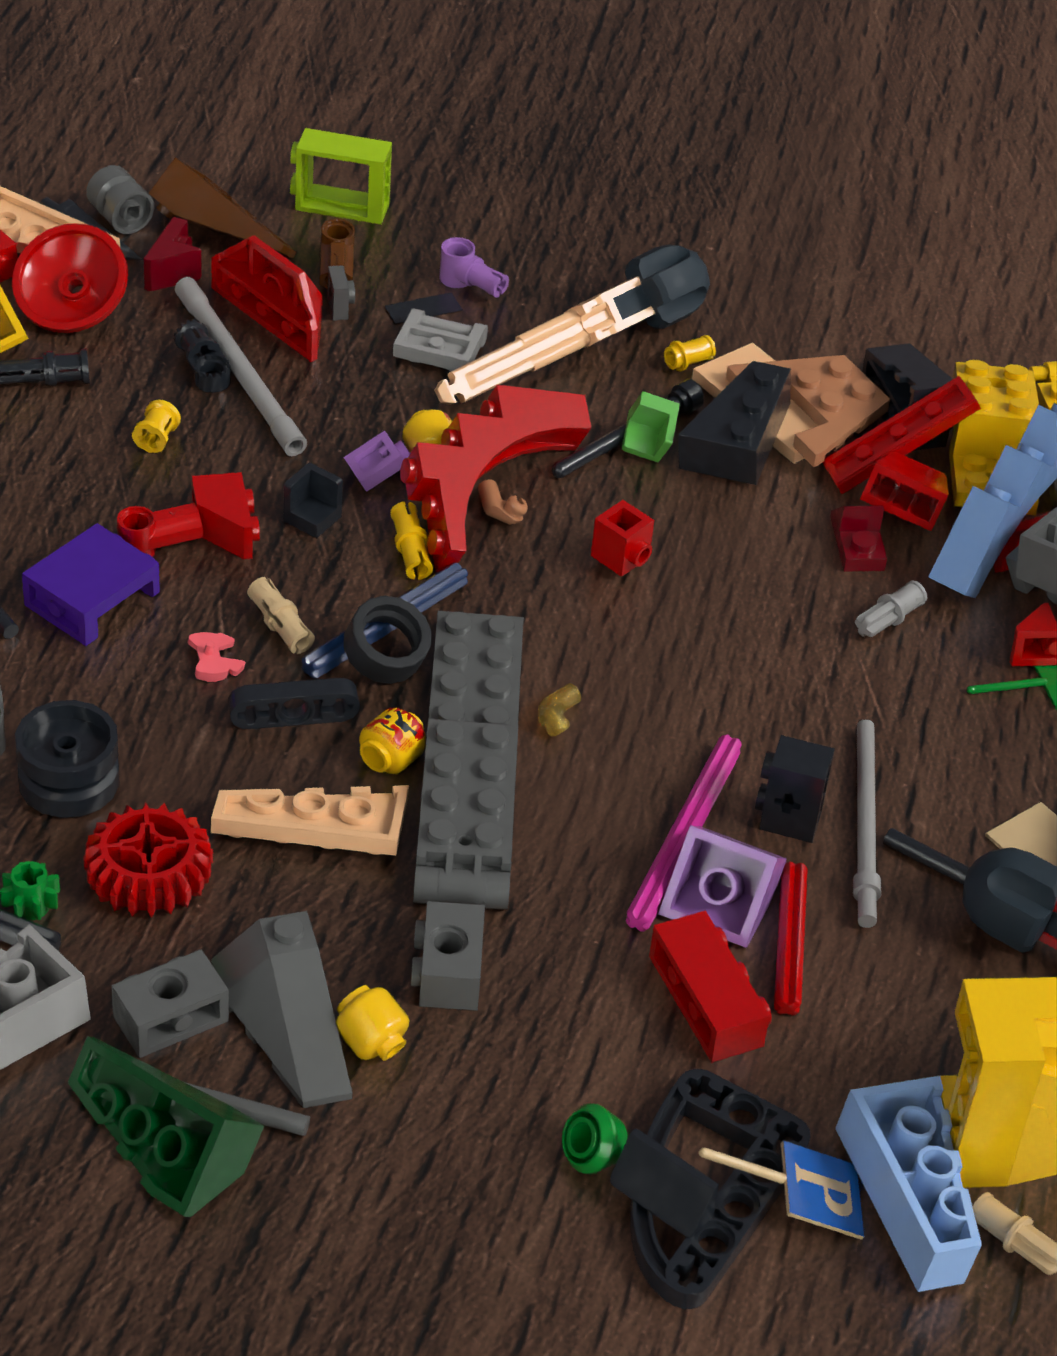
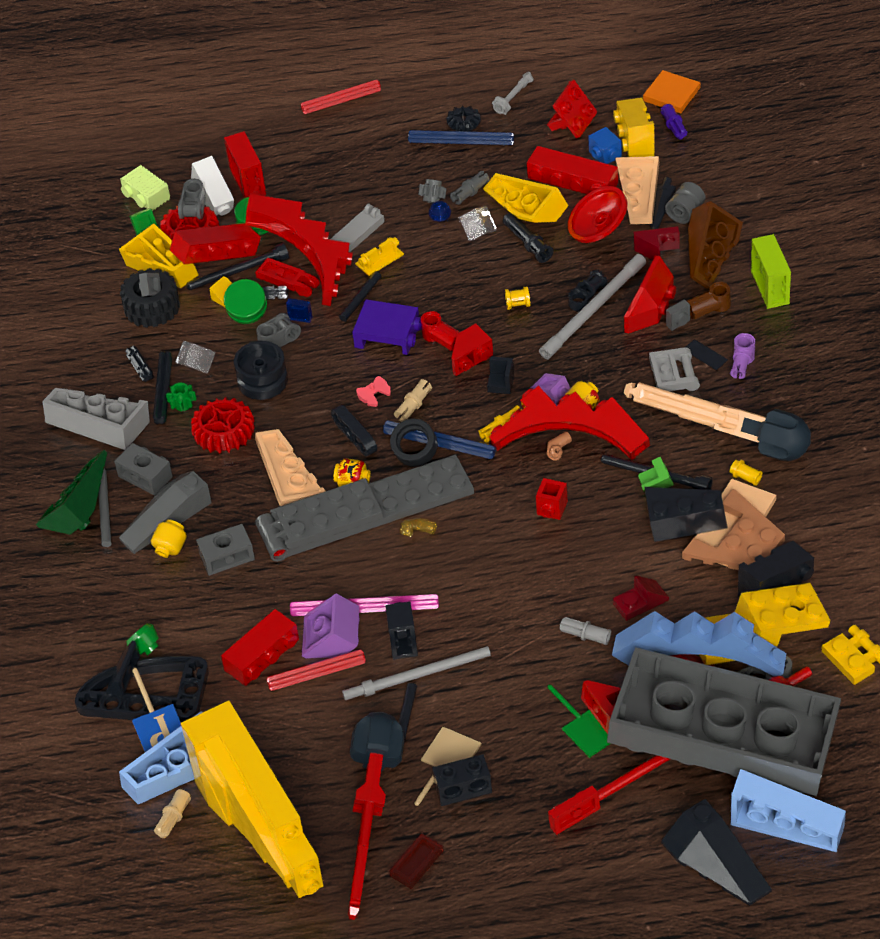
camera: 75 degrees right, 5 degrees up
(901, 433) = (719, 579): red tile -> none
(907, 489) = (681, 596): red torso -> none

